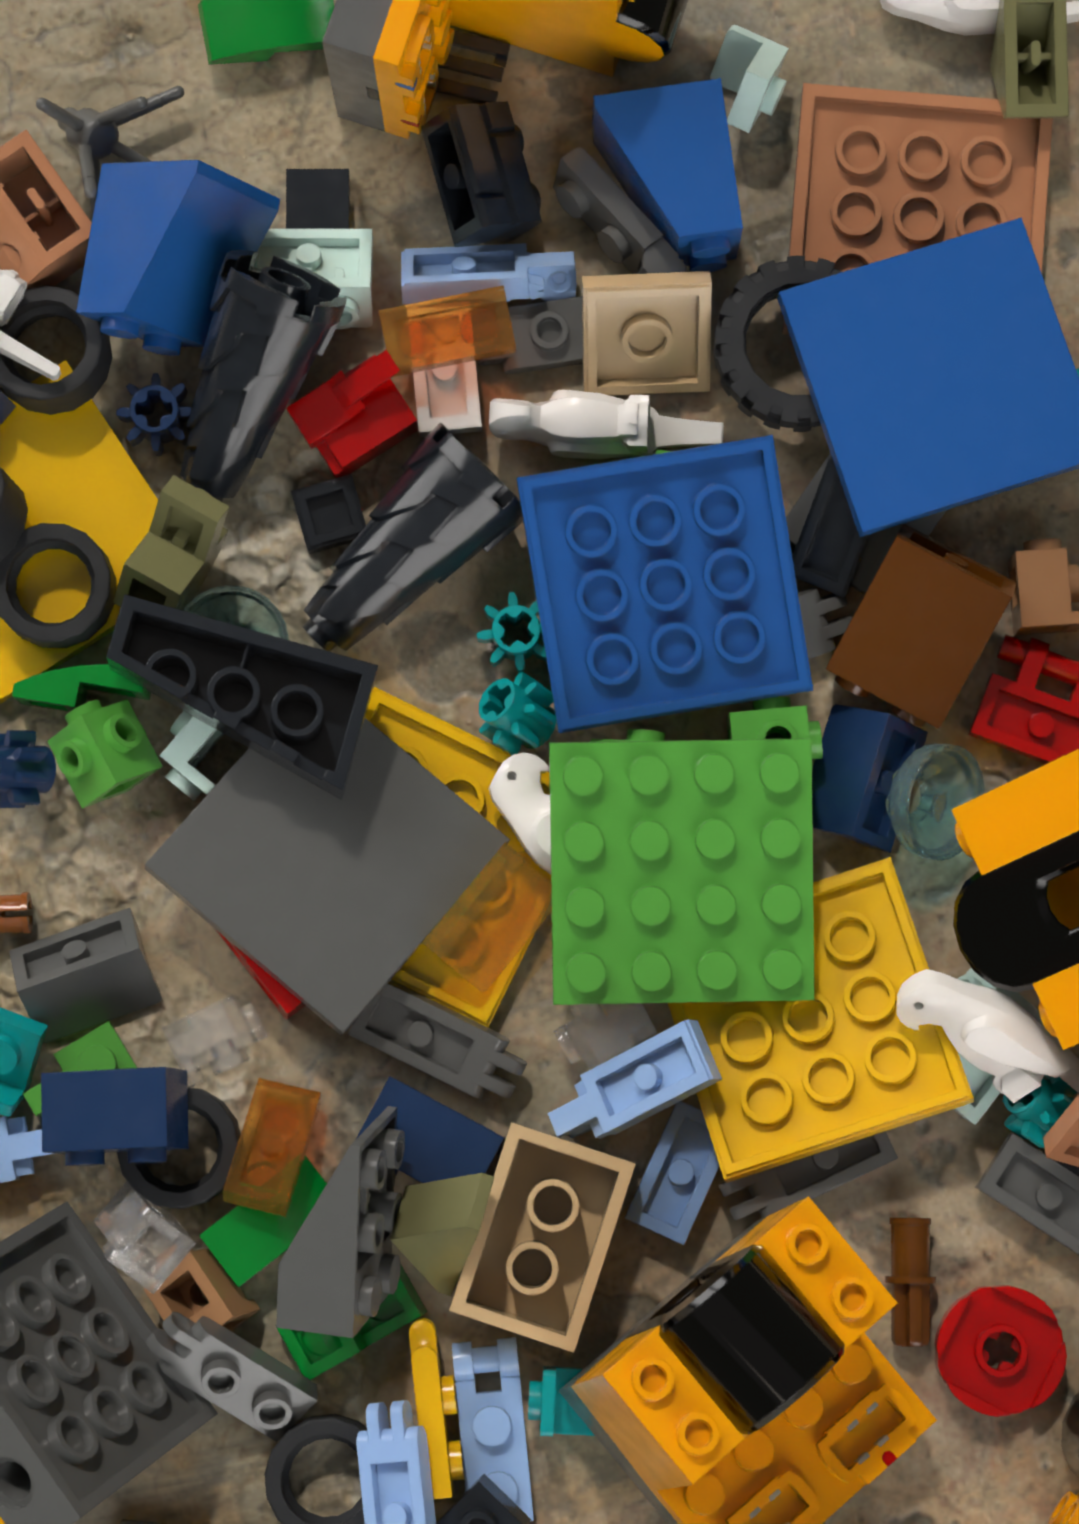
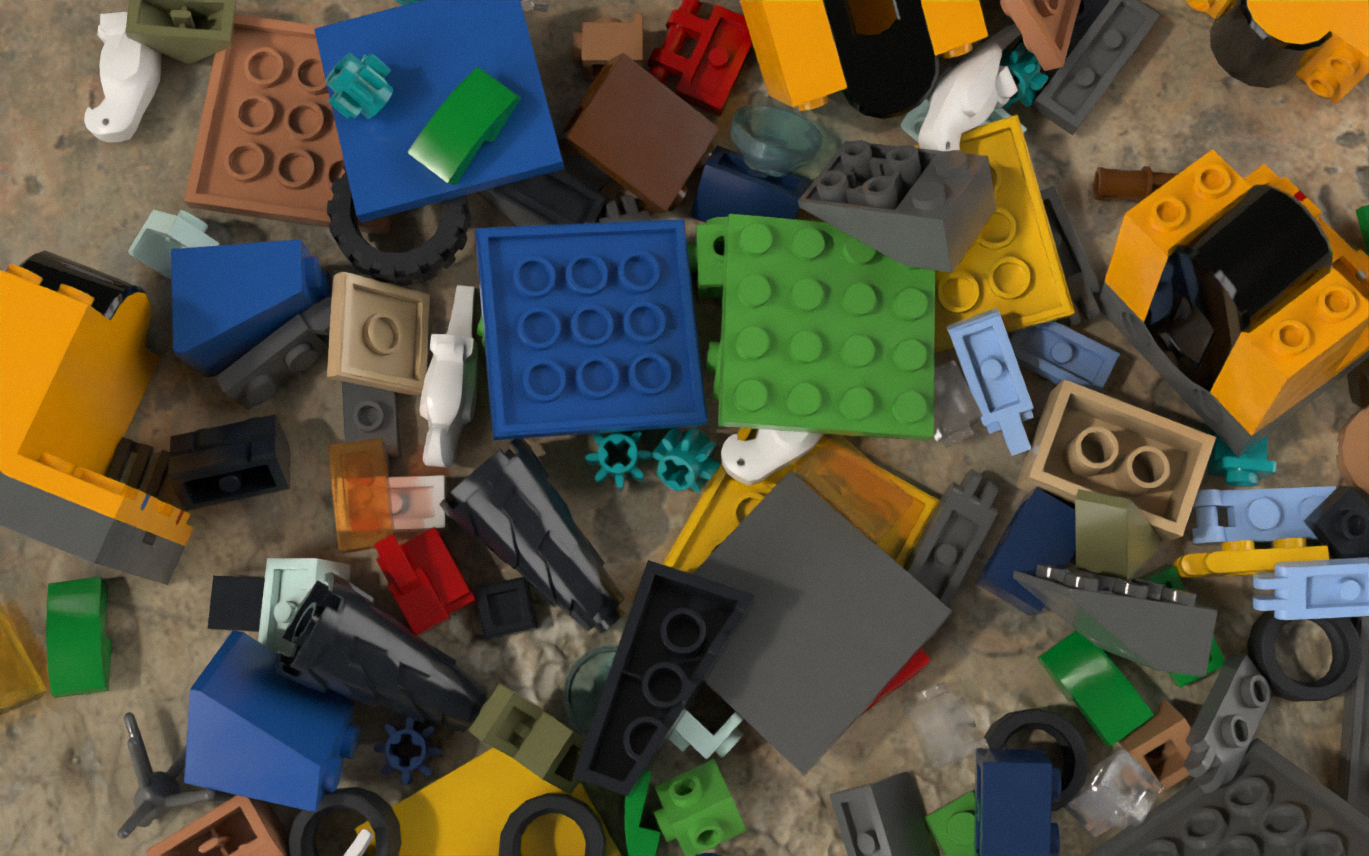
camera: 90 degrees left, 5 degrees down
(272, 1147) = (1038, 680): clear orange plate -> none
(459, 270) = (310, 490): light blue hinge -> none
(843, 953) = (905, 200): none -> dark grey slope
(897, 408) = (462, 124): none -> green slope
(936, 279) = (359, 85): none -> teal gear
(1036, 1338) = (1205, 94): red plate -> none

